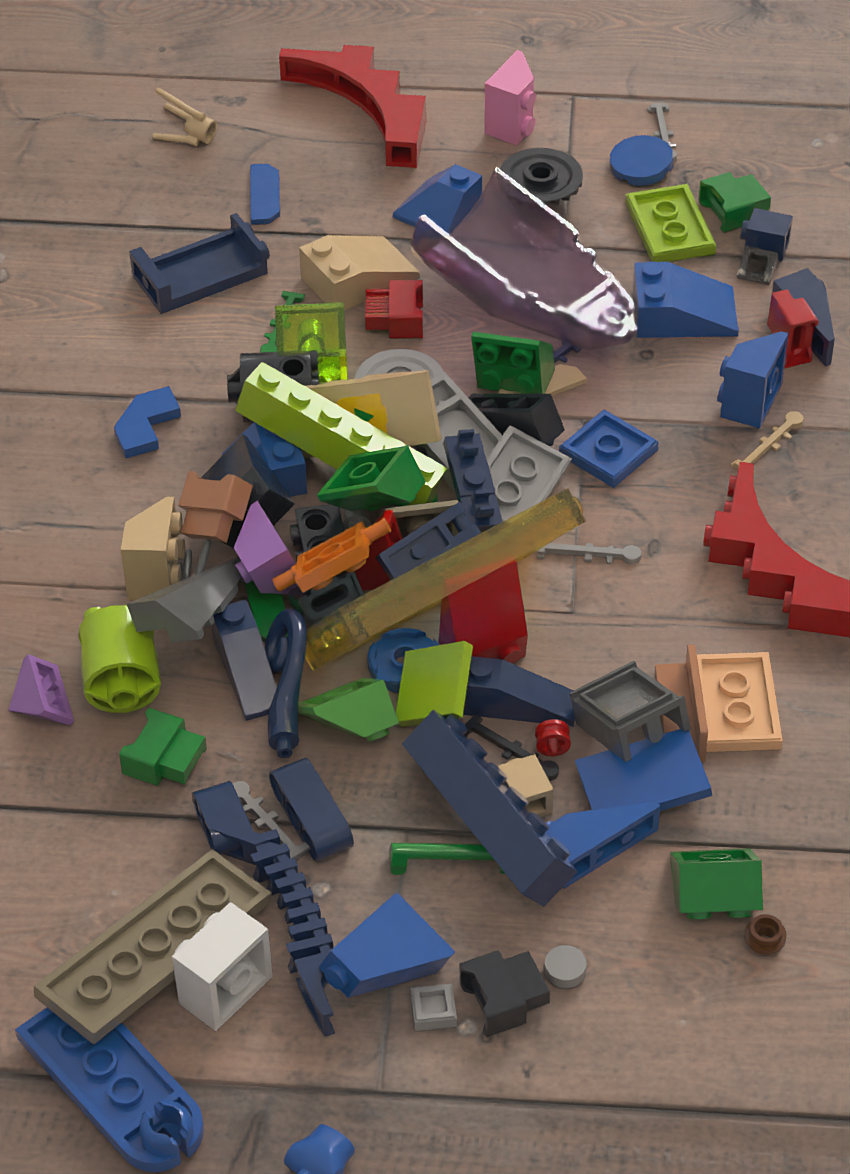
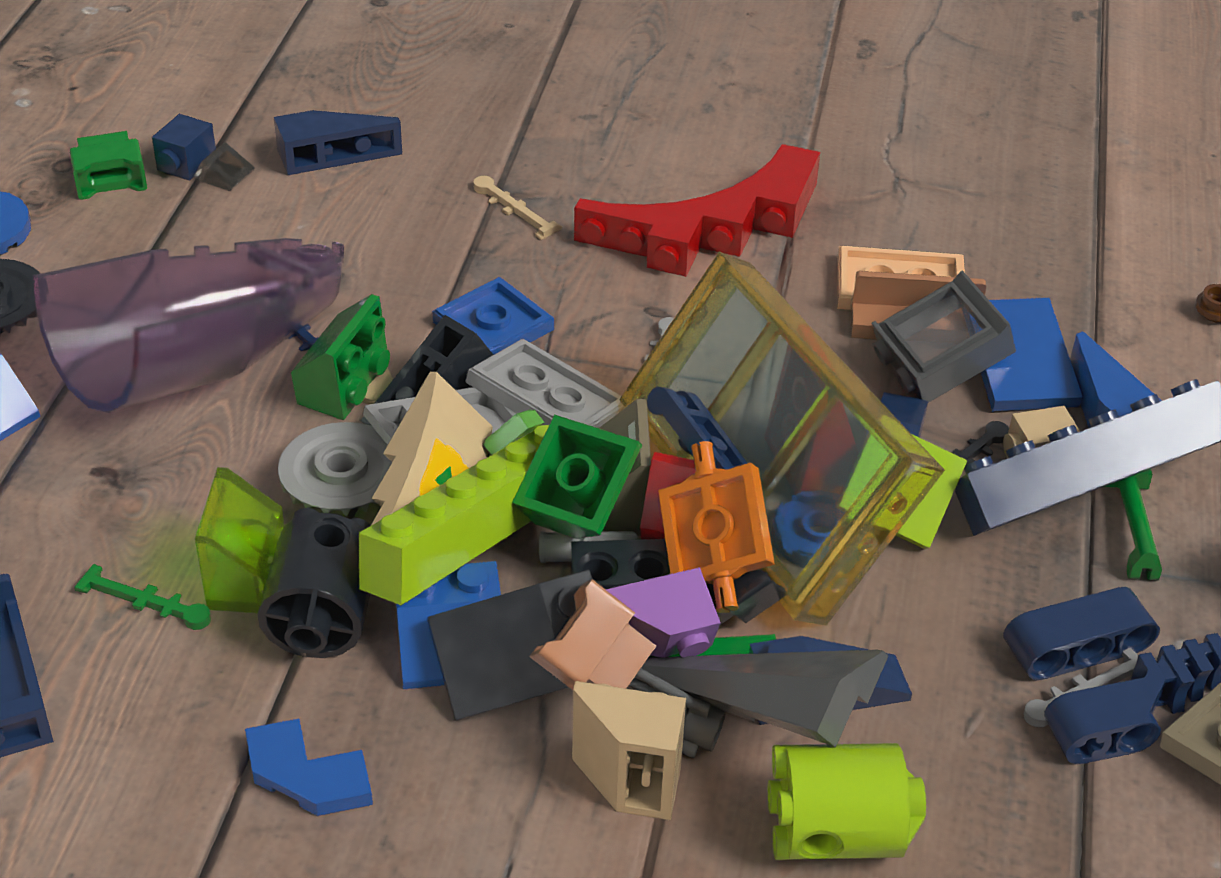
camera: 85 degrees left, 5 degrees down
(162, 750) = (984, 779): green piece -> none
(287, 658) = (930, 647): dark blue plant -> none
(345, 266) = (76, 505): tan slope -> none
(354, 708) = (915, 578): bright green slope -> none
(396, 309) = (178, 464): red piece -> none
(430, 449) = (513, 429): none -> bright green tile
(472, 478) = (593, 411): dark blue plate -> none
(552, 737) = (963, 413): red bush -> none
(670, 223) = (113, 222): lime tile -> none
(681, 303) = (269, 217): blue slope -> none
(717, 882) = (1158, 319): green slope -> none
(752, 379) = (449, 177): blue slope -> none
(798, 321) = (359, 146): red piece -> none

